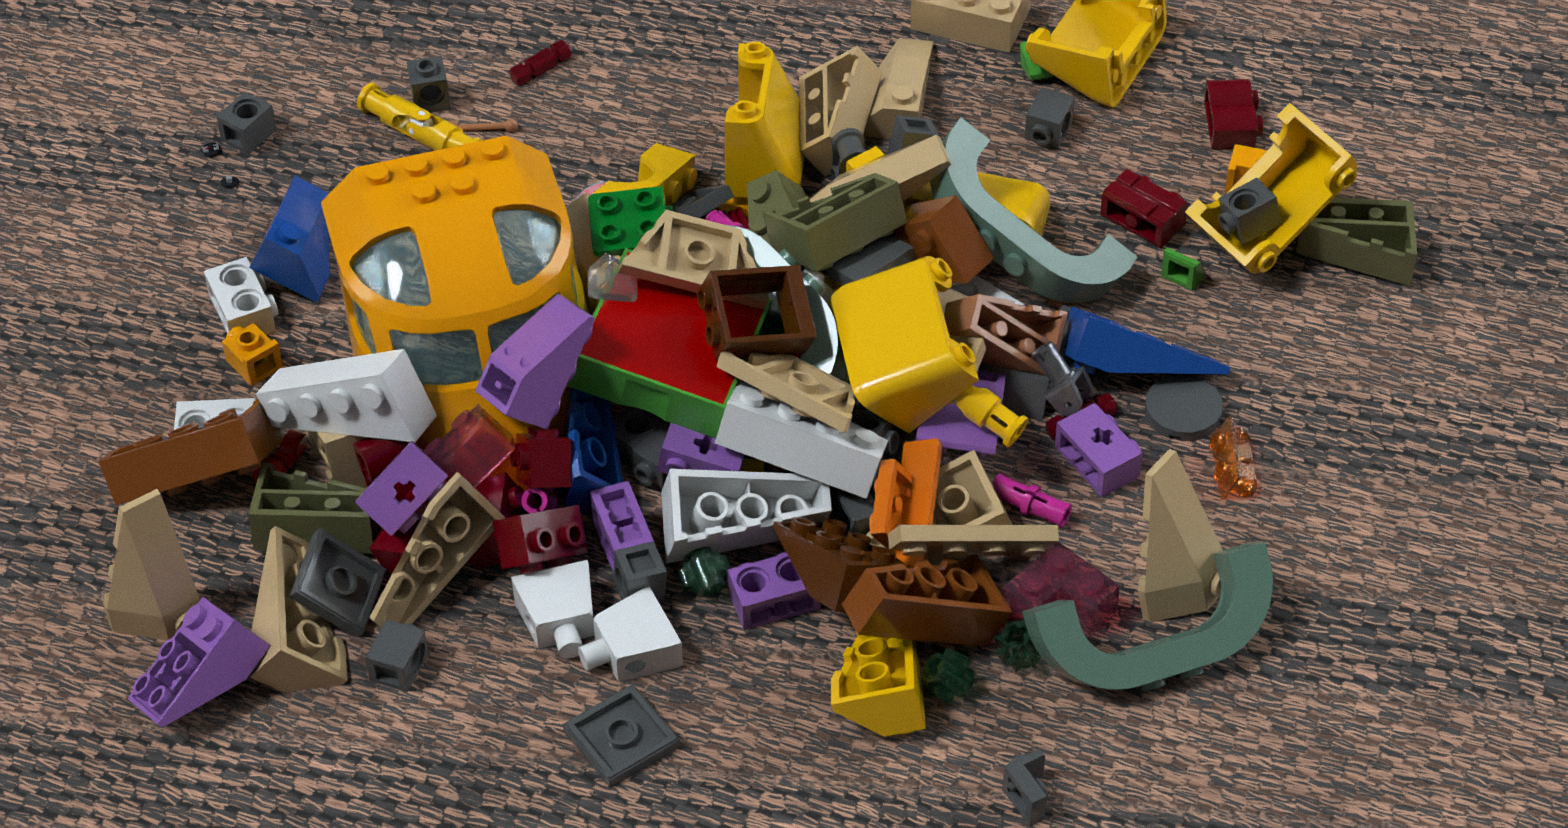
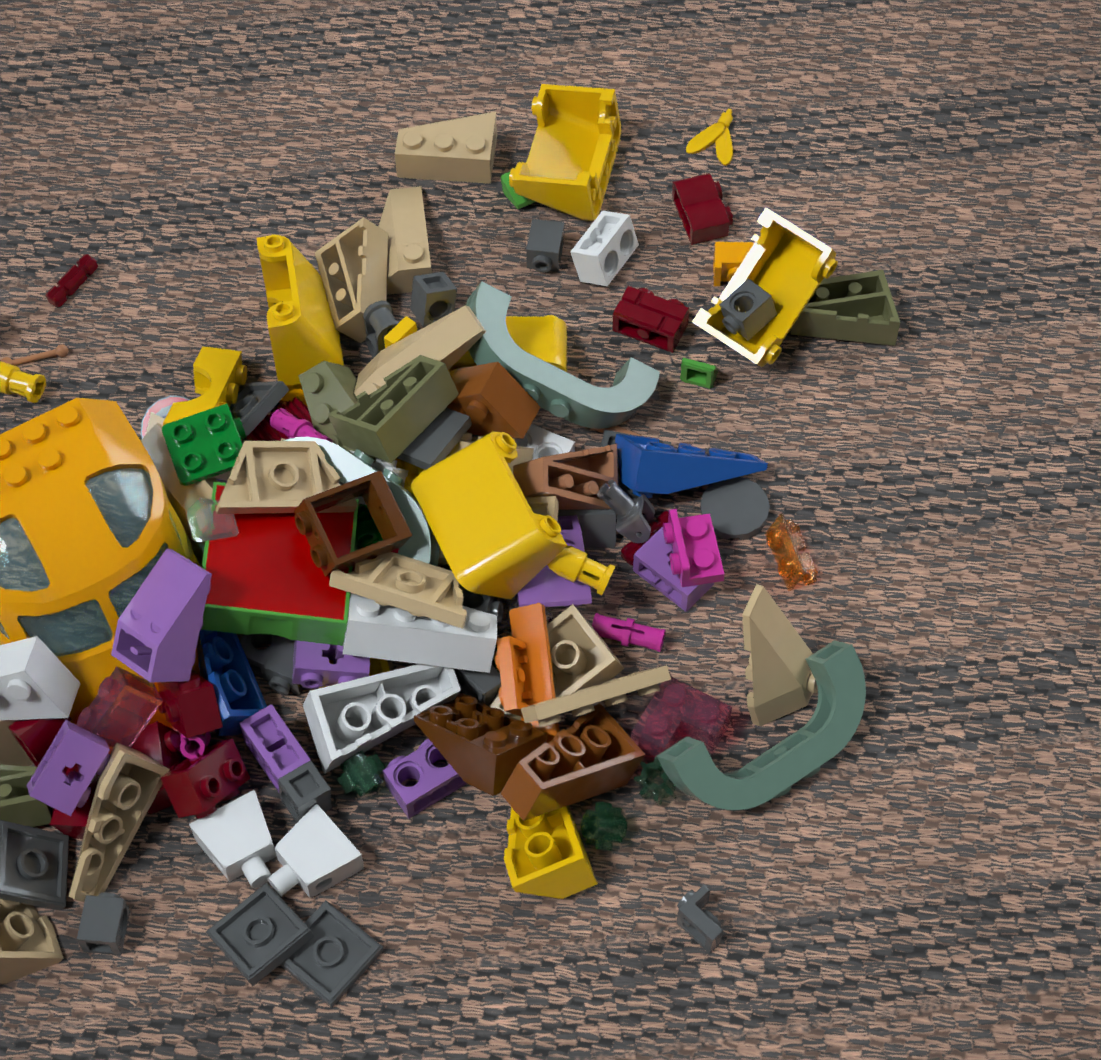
camera: 15 degrees left, 10 degrees up
(555, 699) = (259, 934): none -> dark grey tile
(1112, 130) = (604, 248): none -> white brick
(1123, 428) = (694, 549): none -> dark pink bracket
(1271, 47) = (715, 133): none -> yellow piece

